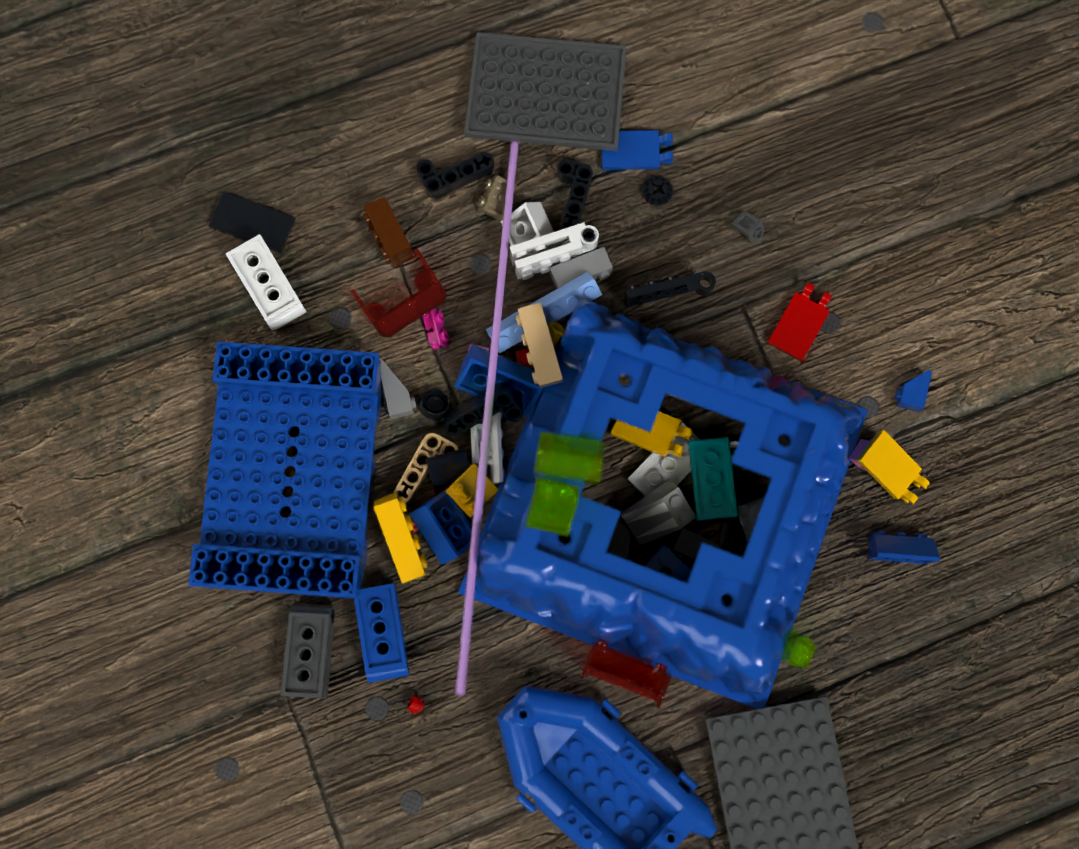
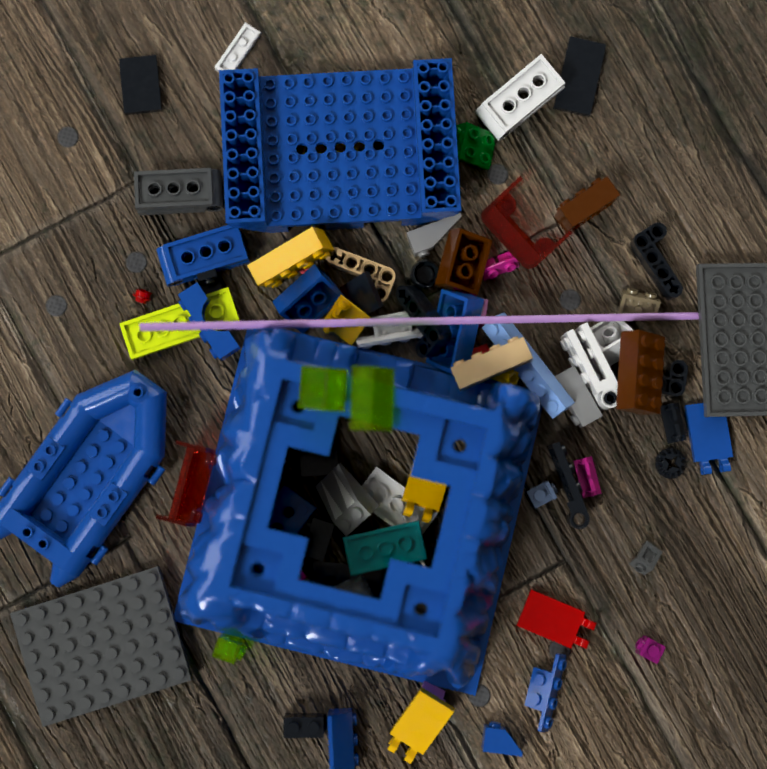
camera: 80 degrees right, 5 degrees up
(163, 570) = (238, 48): none -> white tile
(183, 681) = (140, 84): none -> black tile
(308, 333) = (475, 145): none -> green bracket
(412, 628) = (210, 281): none -> black bracket
(429, 362) = (463, 261): none -> reddish brown brick
(431, 645) = (195, 302): none -> blue arch
(443, 639) = (147, 342): none -> neon yellow plate
(567, 202) = (640, 372): none -> reddish brown brick
(618, 182) = (673, 423): none -> black hinge
(661, 271) = (587, 477): none -> dark pink hinge
(674, 317) = (542, 494): none -> sand blue bracket
(837, 236) = (649, 649): none -> magenta bracket
(867, 342) = (544, 689): none -> blue bracket
(883, 585) = (304, 725): none -> black brick

